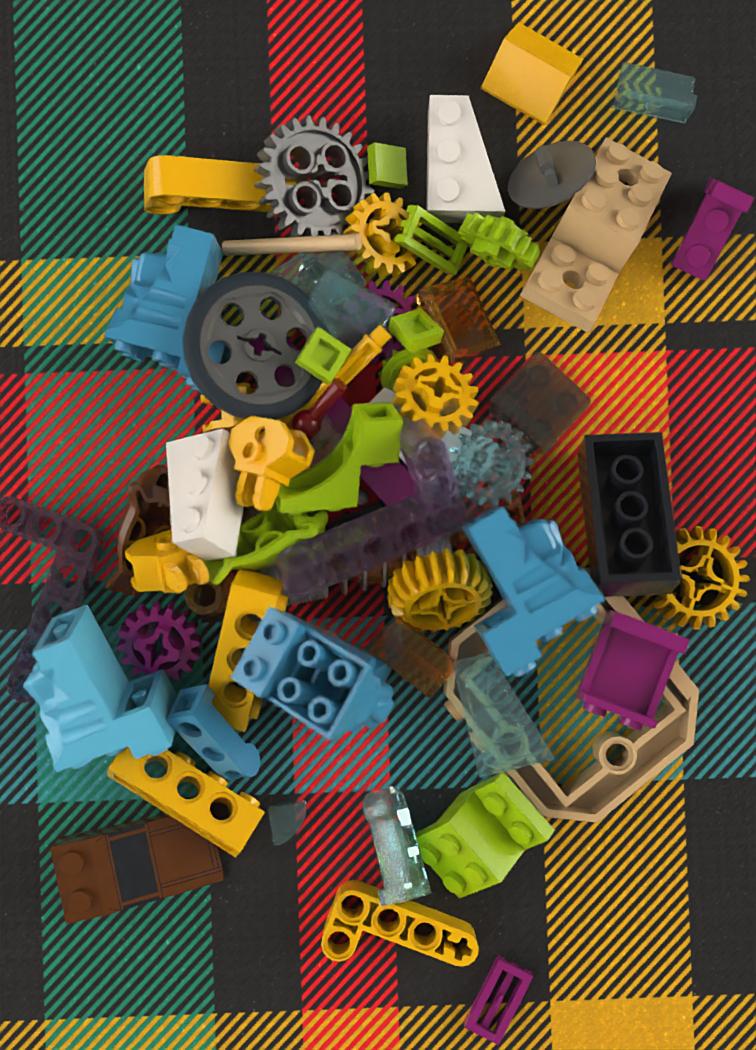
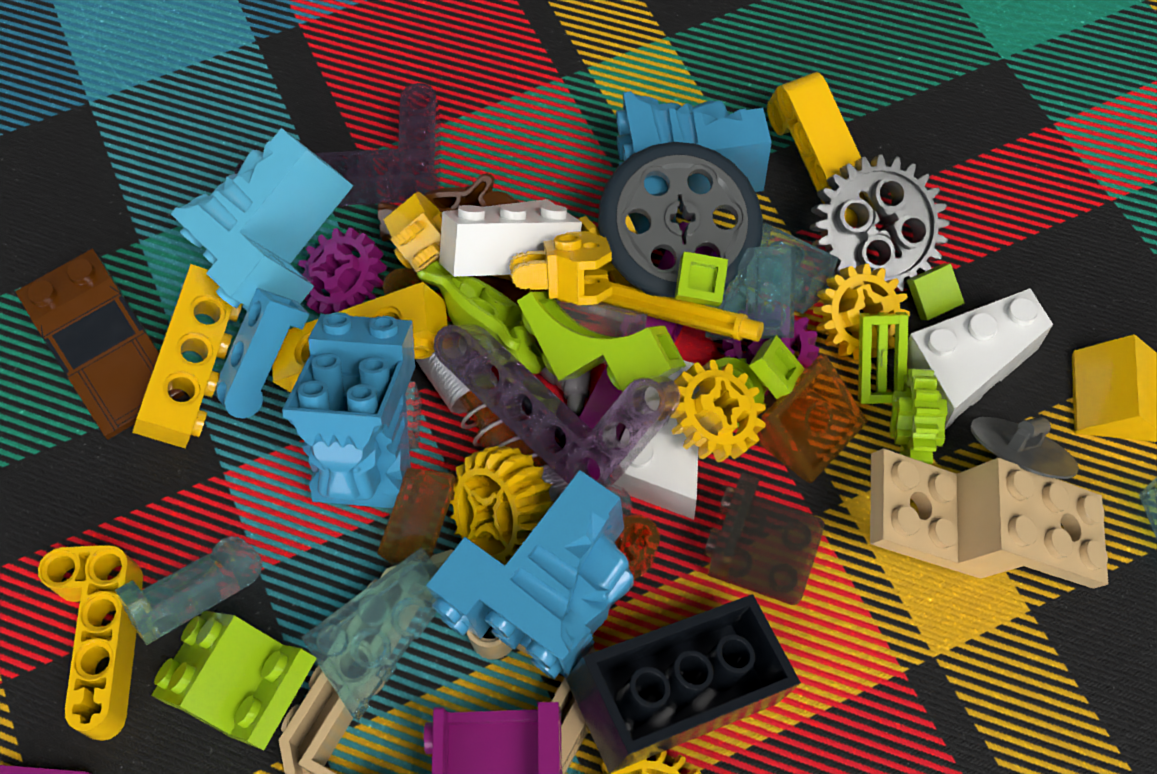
camera: 75 degrees right, 25 degrees down
(286, 820) = (190, 473): clear light blue tile -> none
(292, 244) = (804, 229): tan bar -> none
(309, 420) = (629, 301): dark red bar -> none
(505, 469) = (655, 515): clear light blue gear -> none
(710, 228) = (1073, 650): magenta bracket -> none

